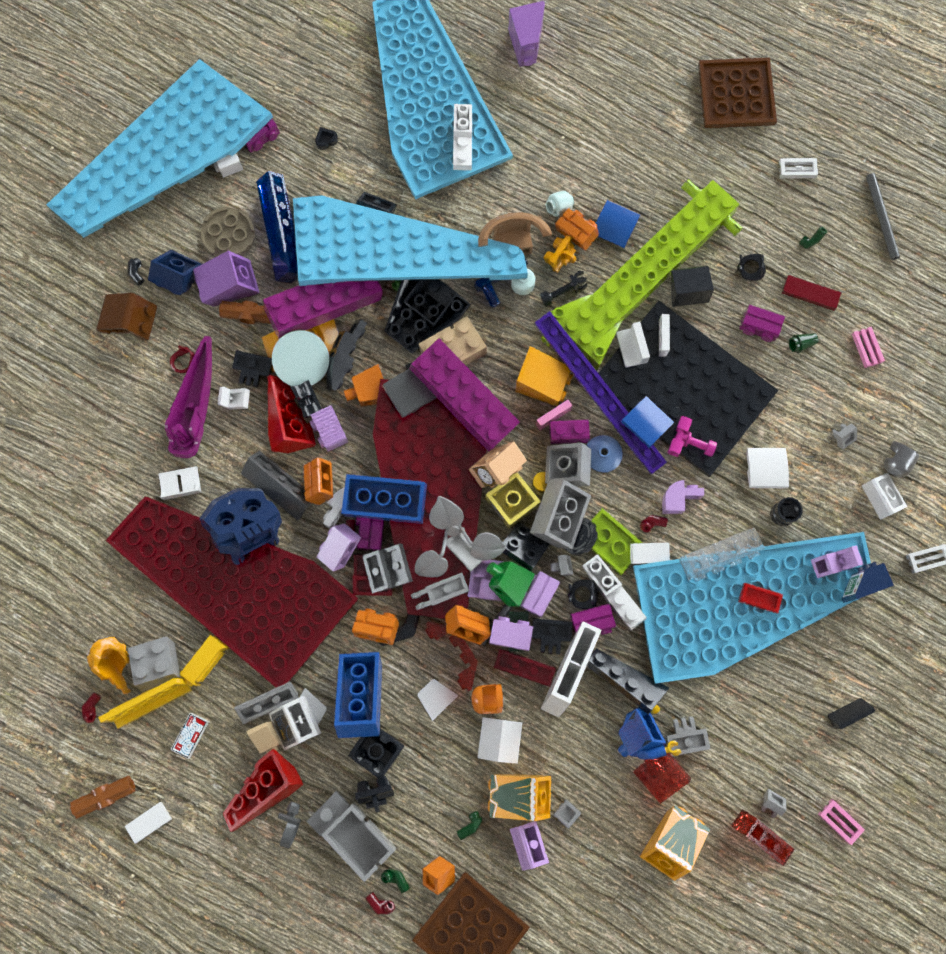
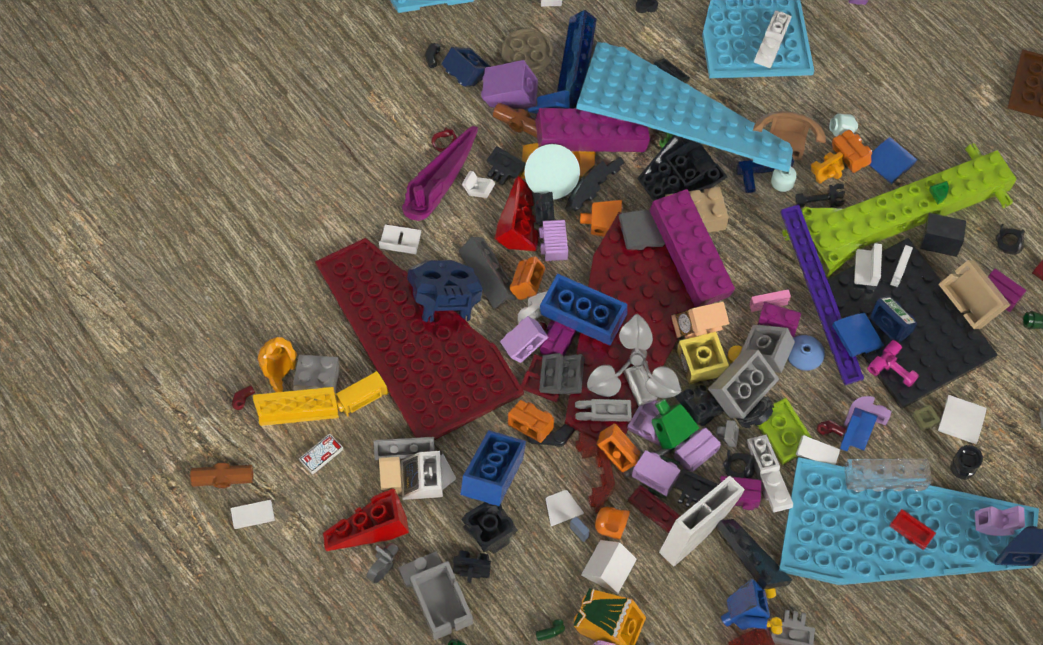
camera: 20 degrees right, 15 degrees down
(127, 314) = (411, 84): reddish brown piece -> none
(273, 284) = (552, 100): none -> blue panel
(460, 716) = (579, 528): none -> sand blue tile
(543, 378) = (771, 263): light orange slope -> none
(675, 245) = (939, 191): none -> green tile
(676, 394) = (893, 319): none -> dark blue slope
(679, 518) = (858, 429): none -> blue panel
(735, 479) = (926, 417): none -> olive plate
(739, 335) = (974, 293): none -> tan piece

